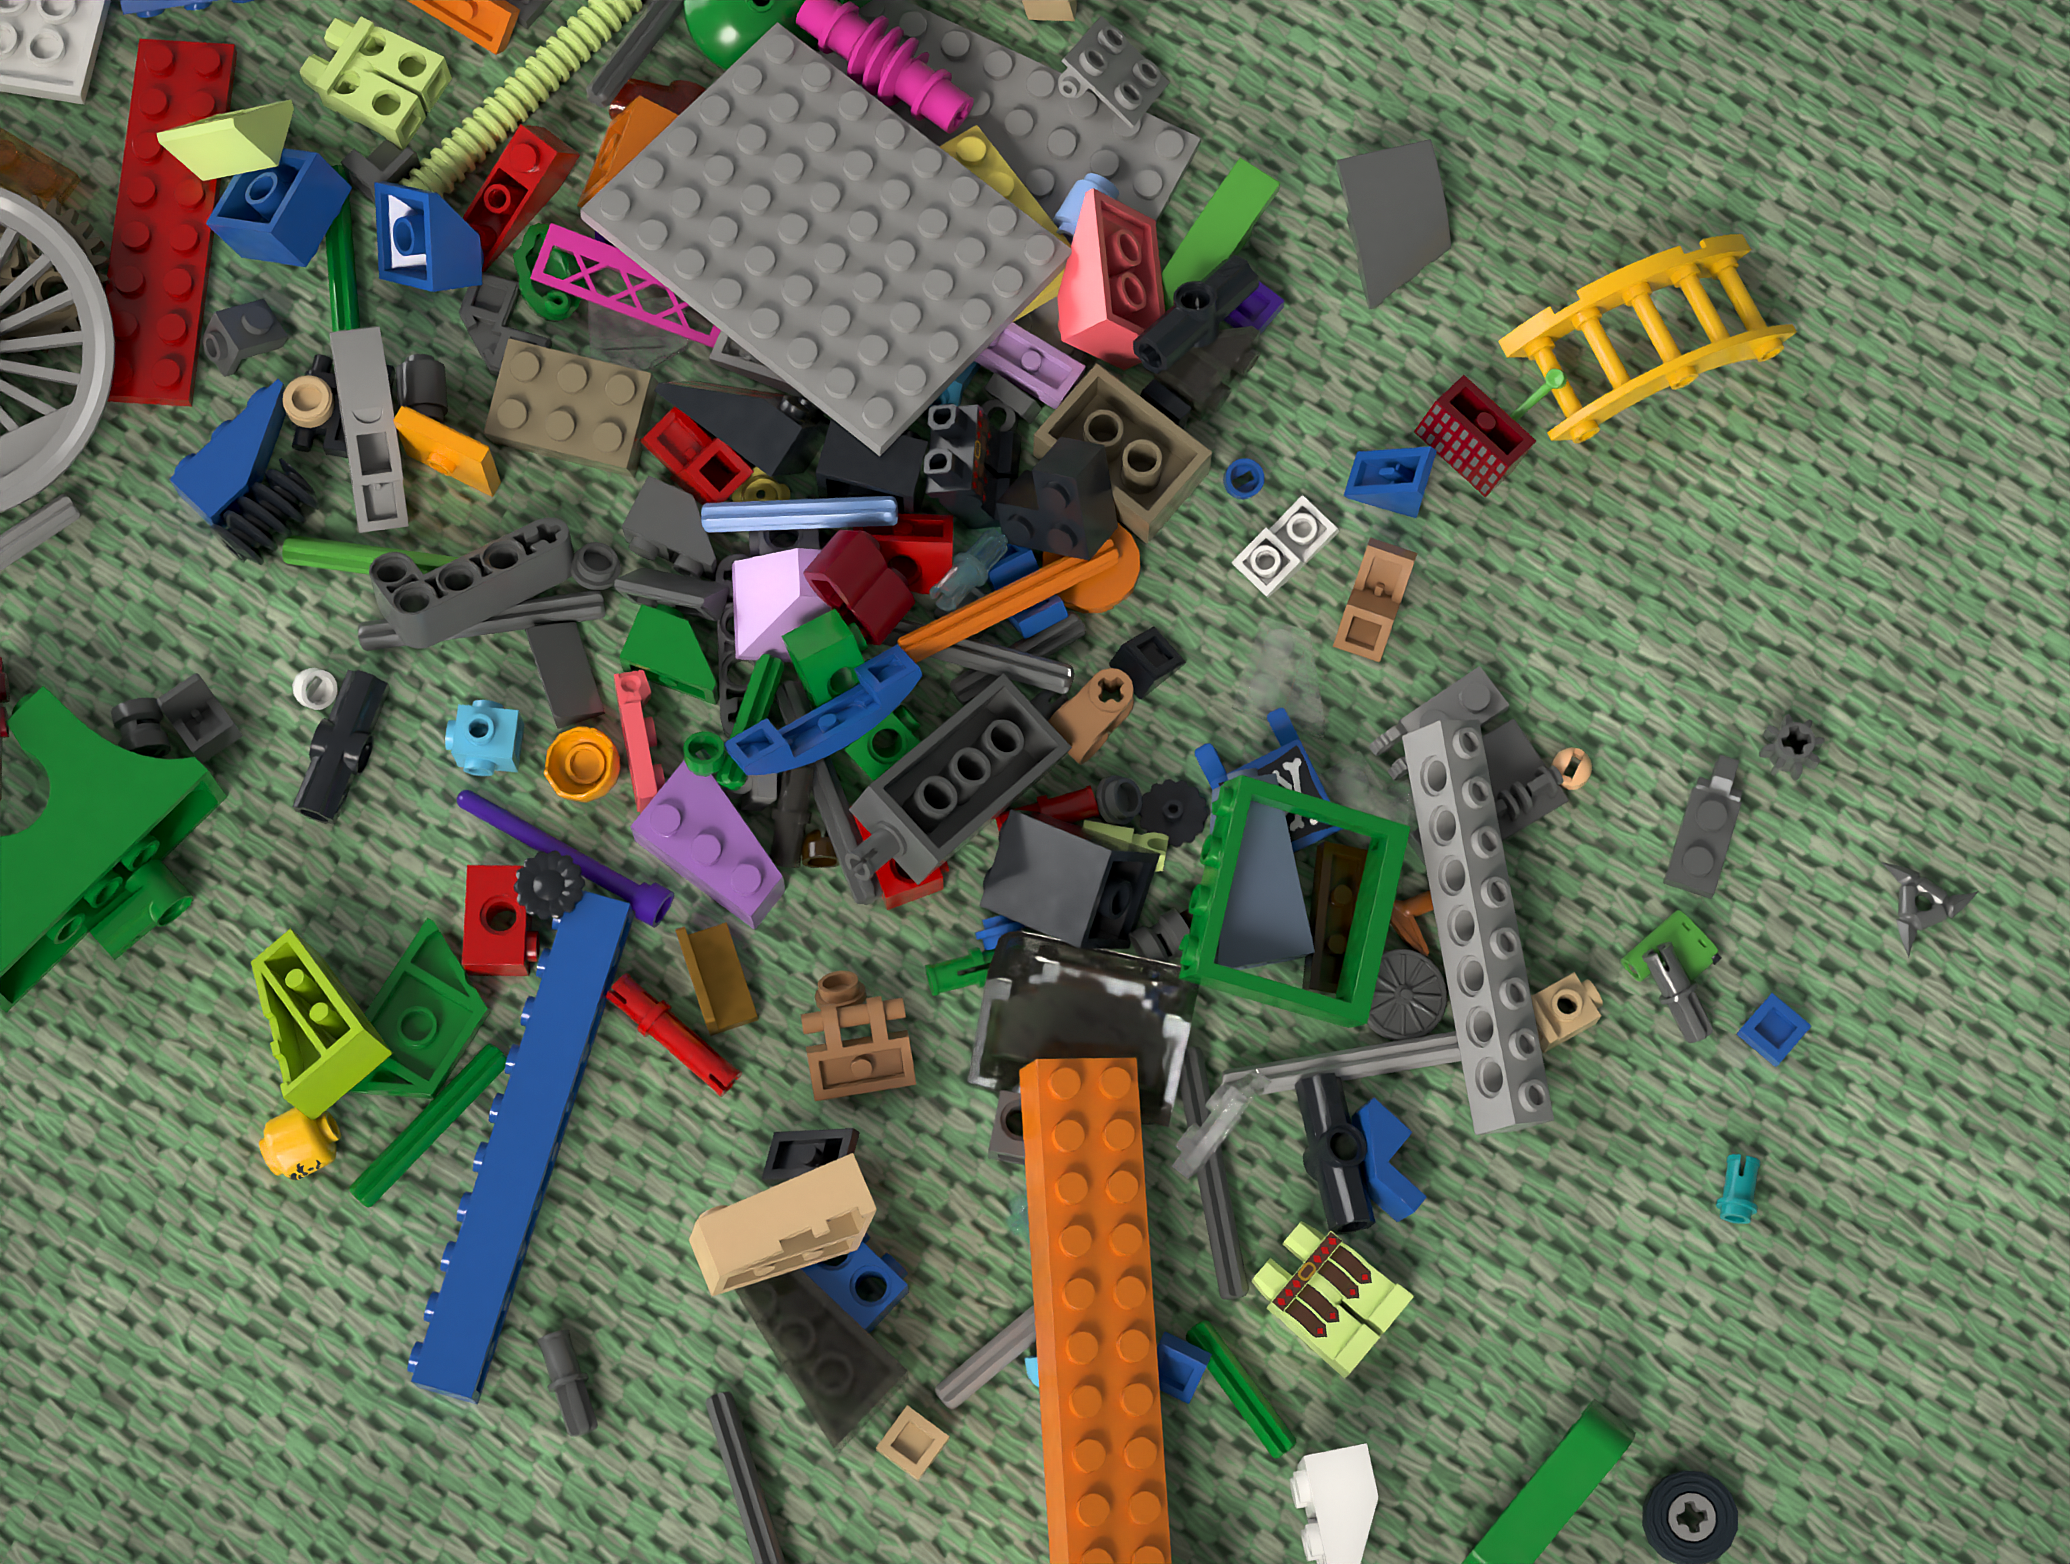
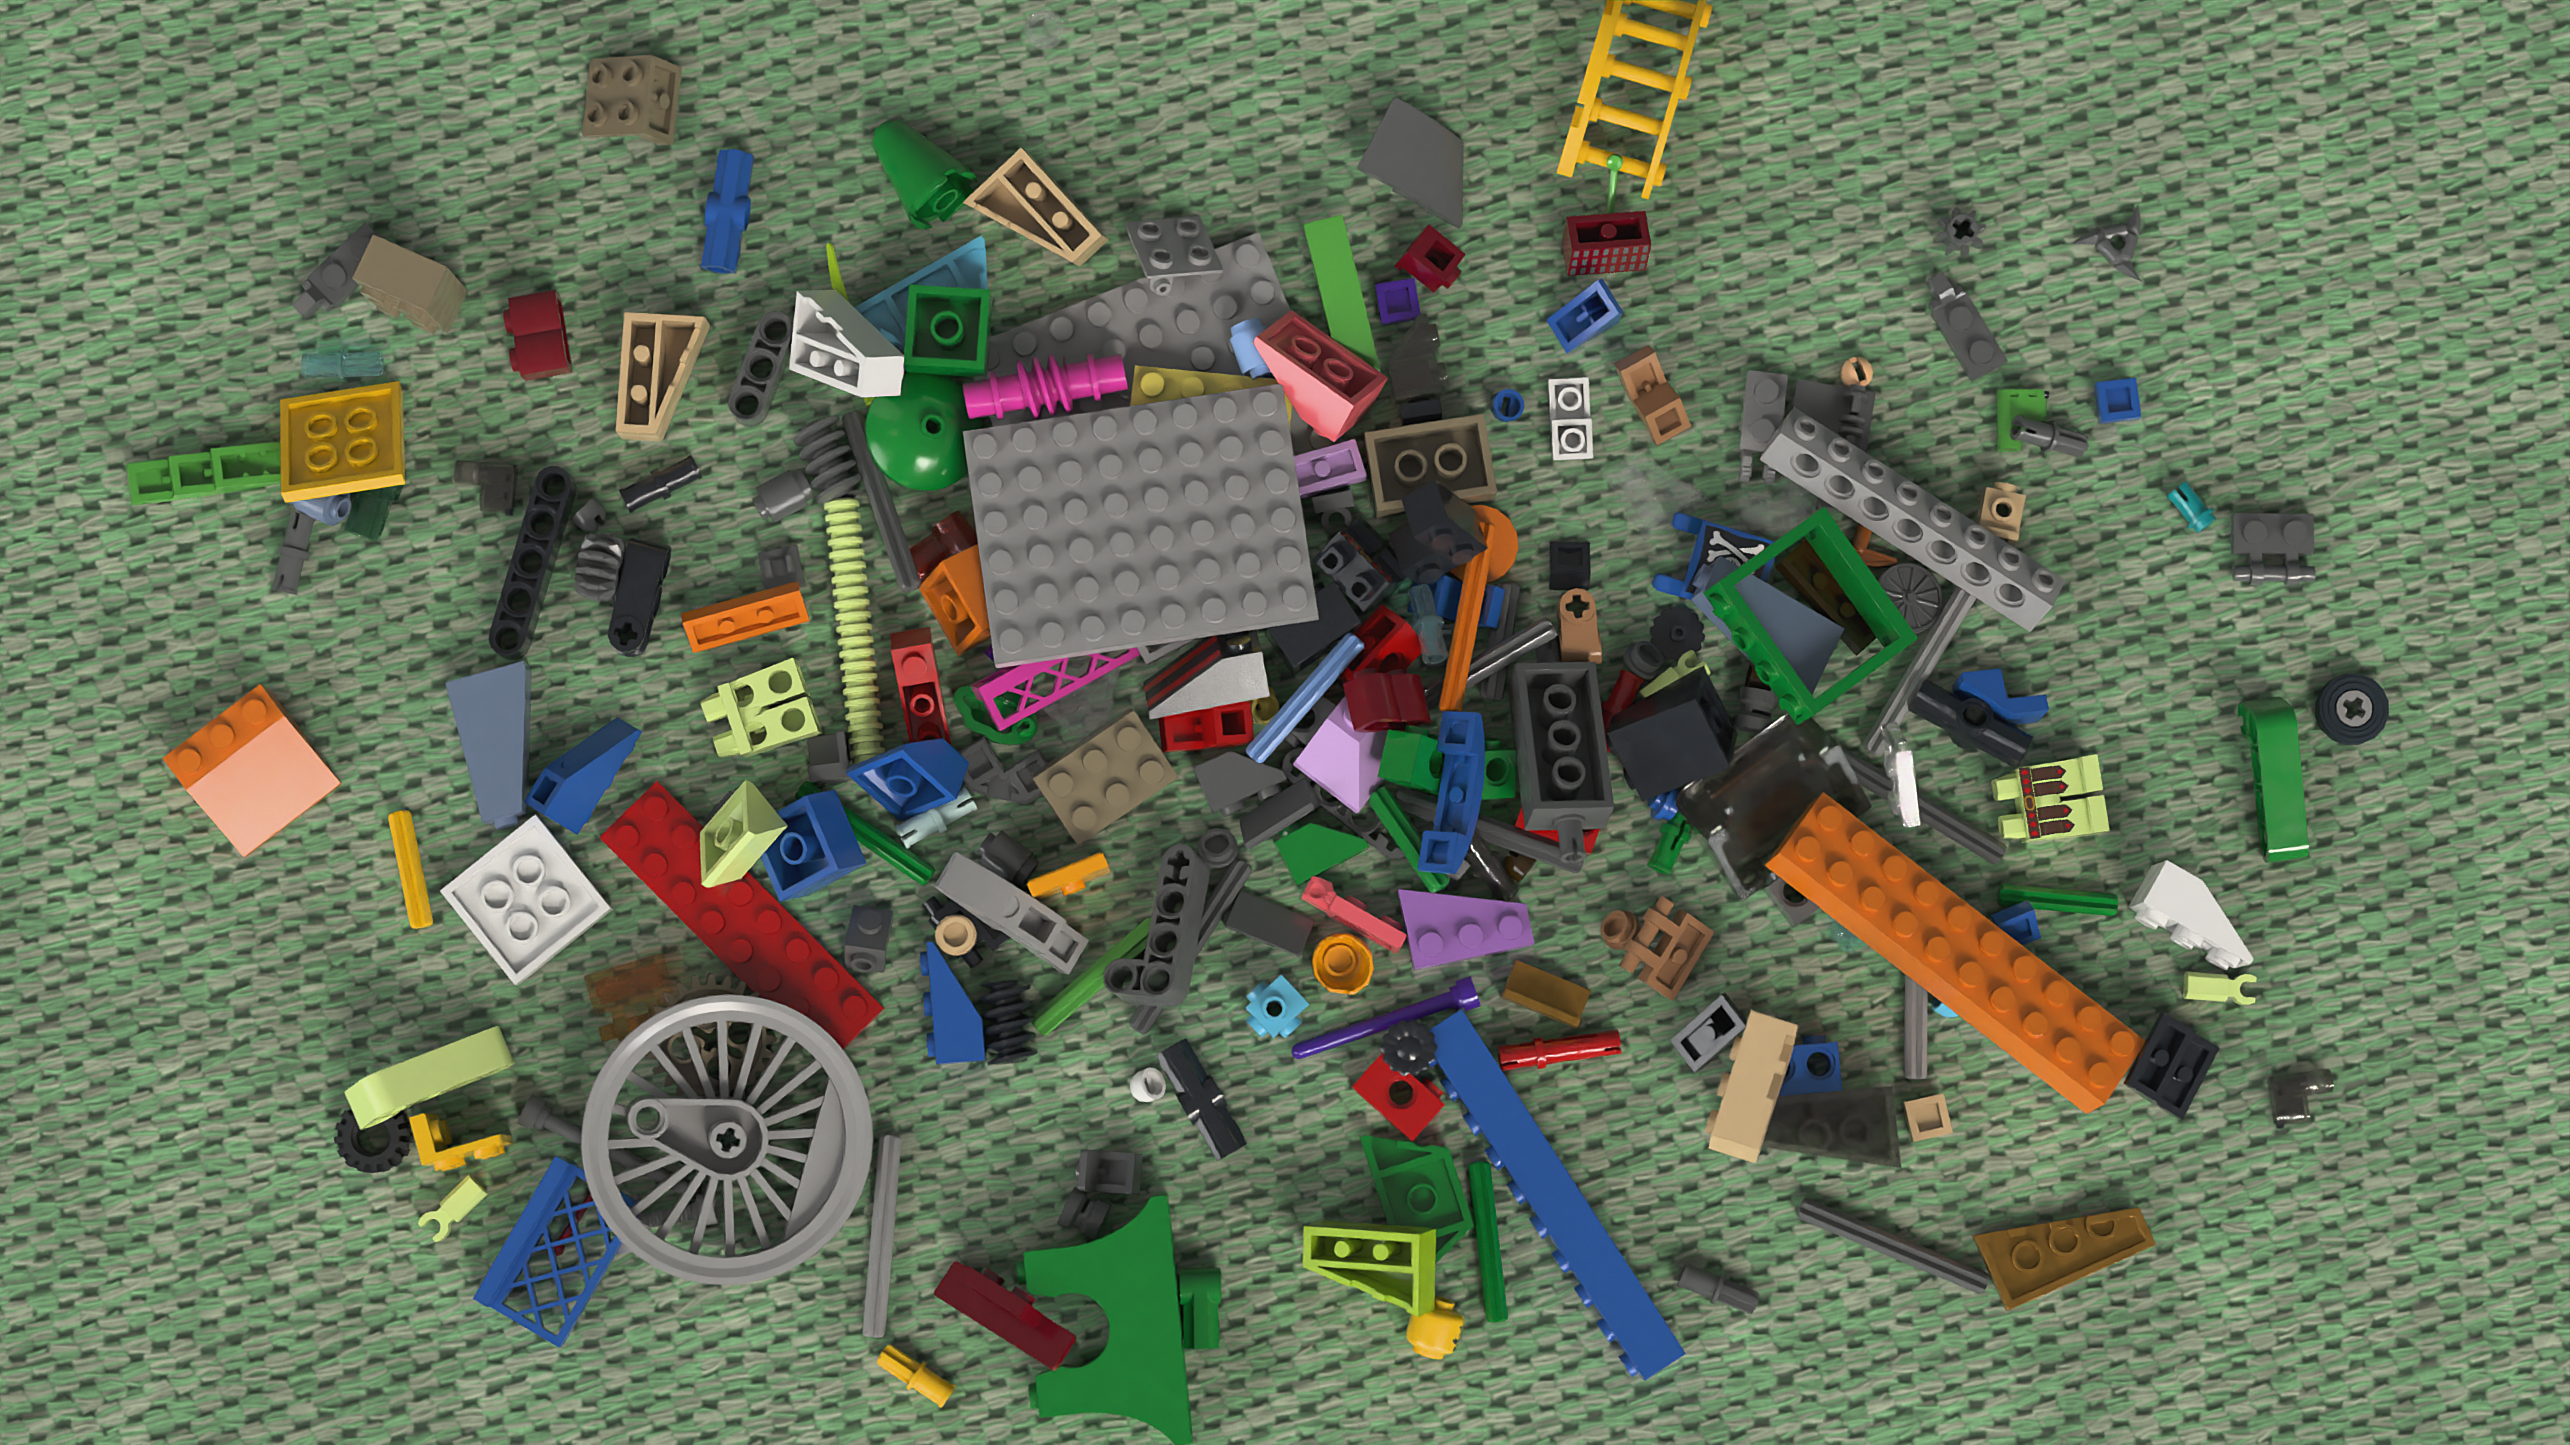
camera: 50 degrees left, 10 degrees up
(406, 302) = (935, 819): none -> light aqua pin
(712, 750) = (1414, 879): green hinge -> none
(1195, 314) = (1388, 364): black piece -> none
(1325, 291) = (1432, 259): none -> dark red brick
(1785, 1292) = (2272, 535): none -> dark grey plate

